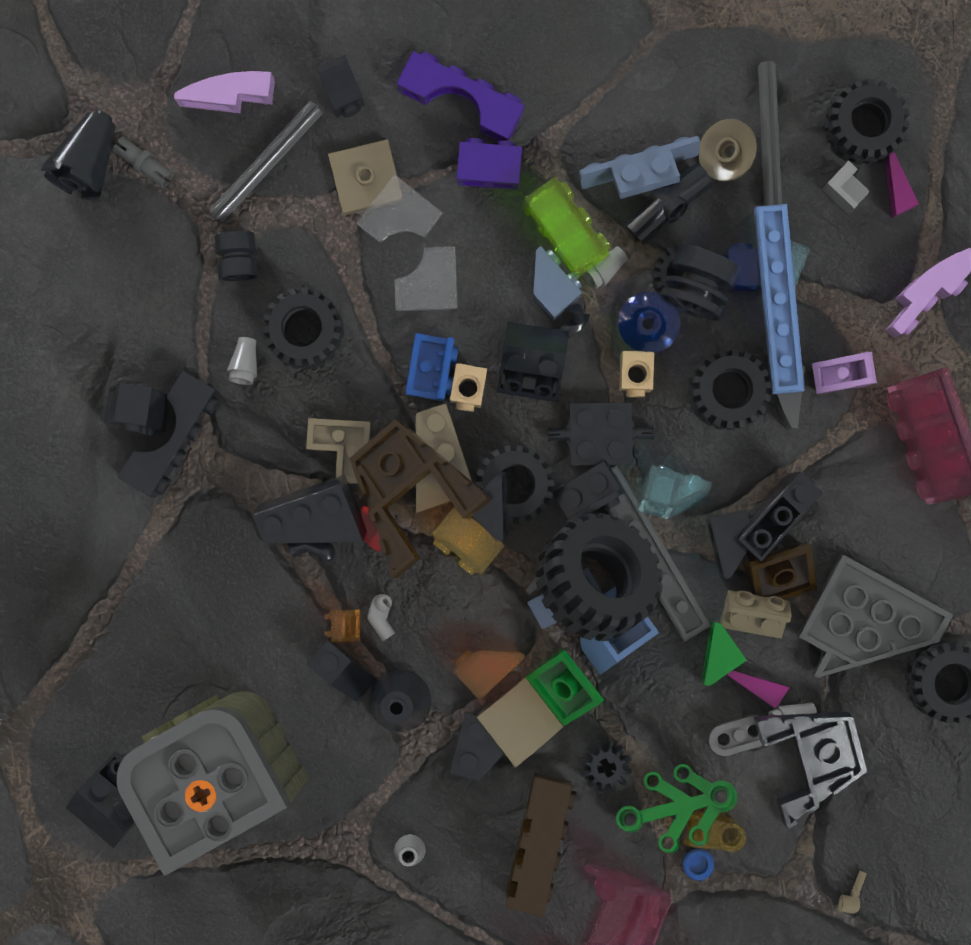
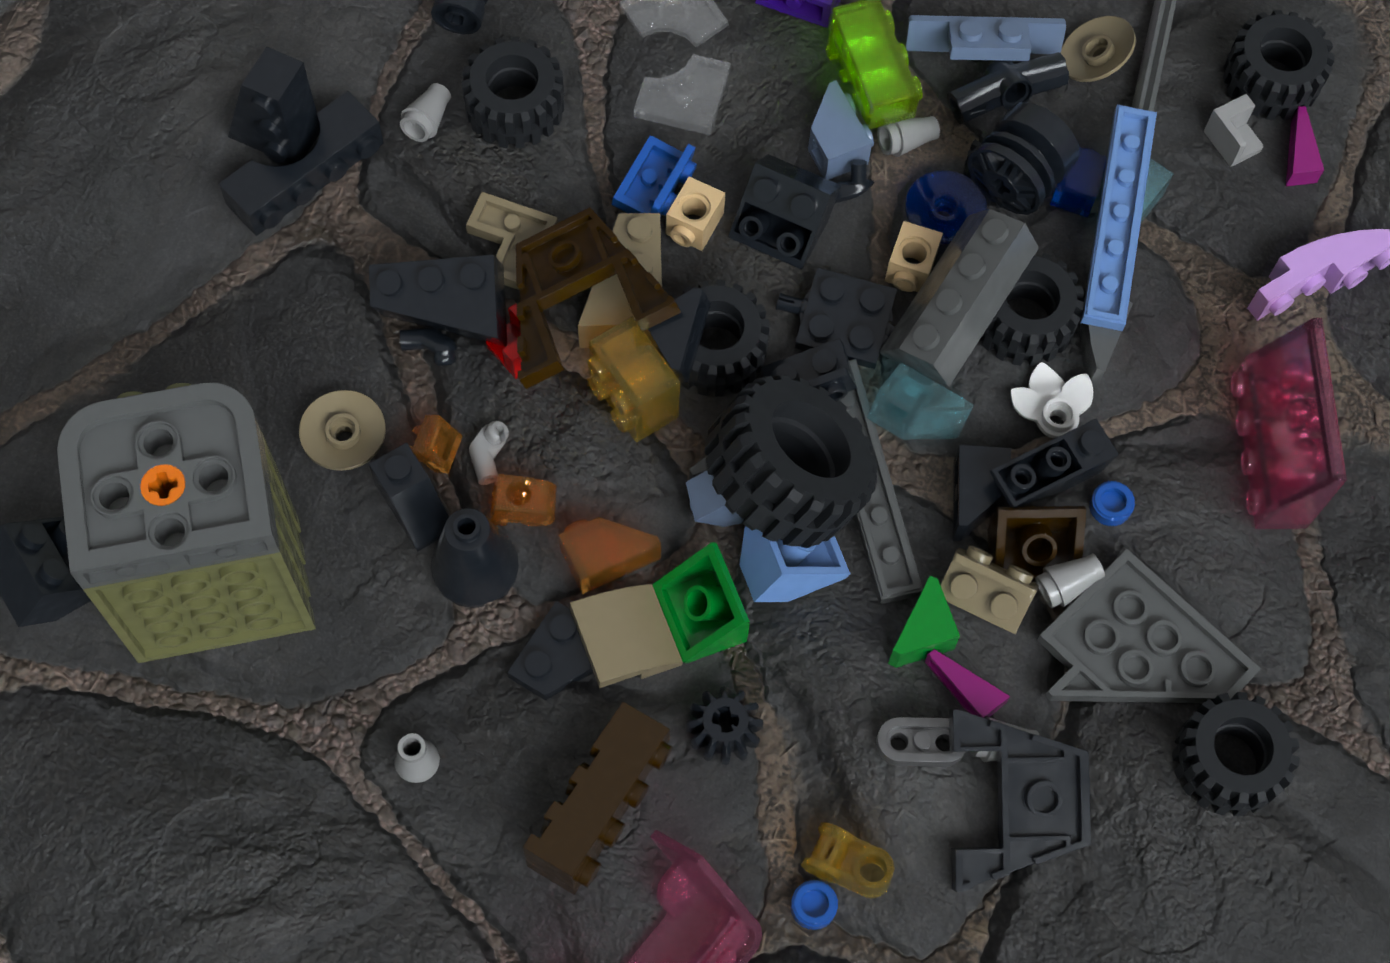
camera: 15 degrees right, 20 degrees down
(260, 640) = (340, 413): none -> dark tan dish
(418, 649) = (523, 501): none -> clear orange leg
(680, 407) = (961, 295): none -> dark grey slope
(683, 807) = (813, 807): green plant -> none
(764, 447) = (1051, 396): none -> white plate
(809, 592) = (1069, 579): none -> light grey cone
(823, 518) = (1112, 503): none -> blue tile
(844, 373) = (1184, 328): lavender slope -> none

